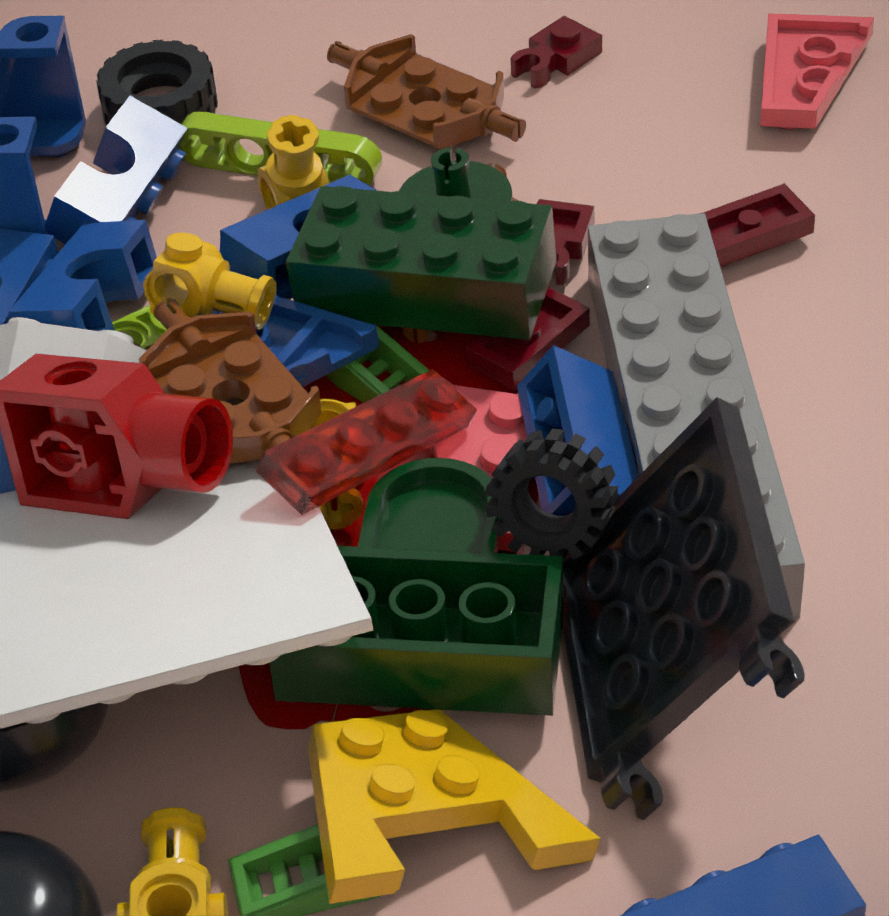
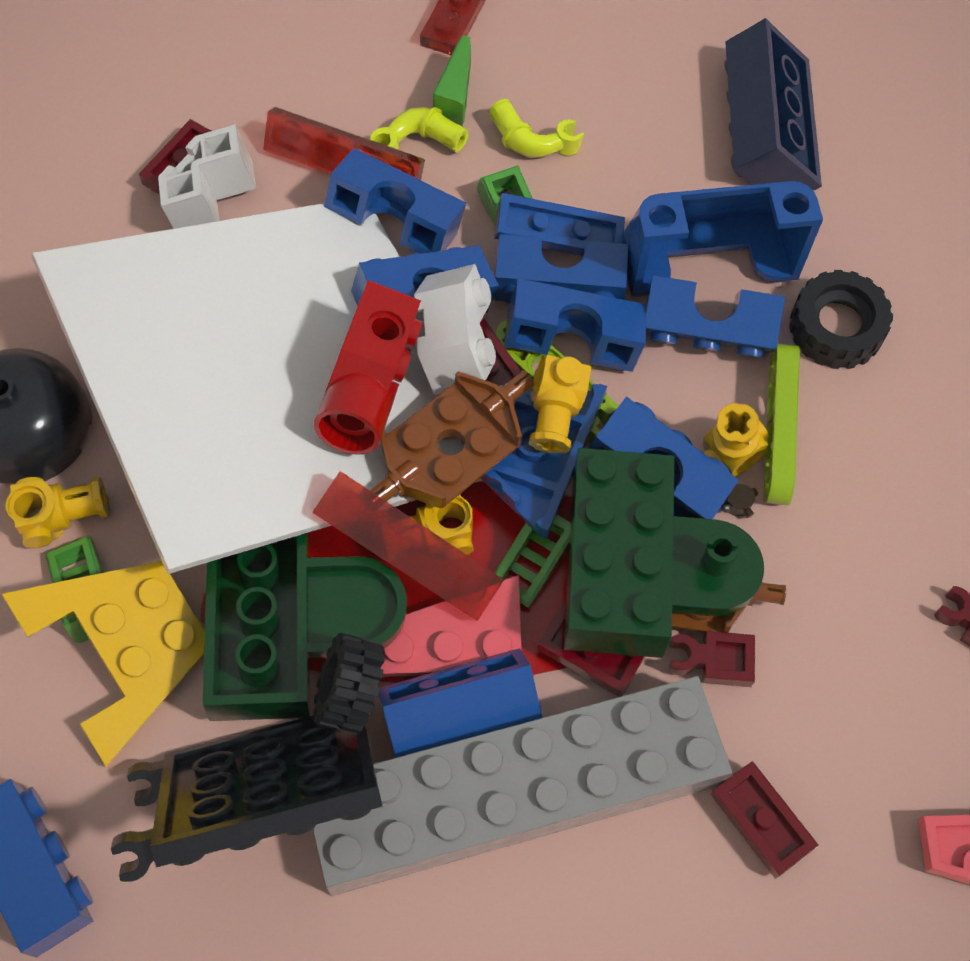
camera: 75 degrees right, 20 degrees up
(422, 95) = (901, 495): dark orange plate -> none

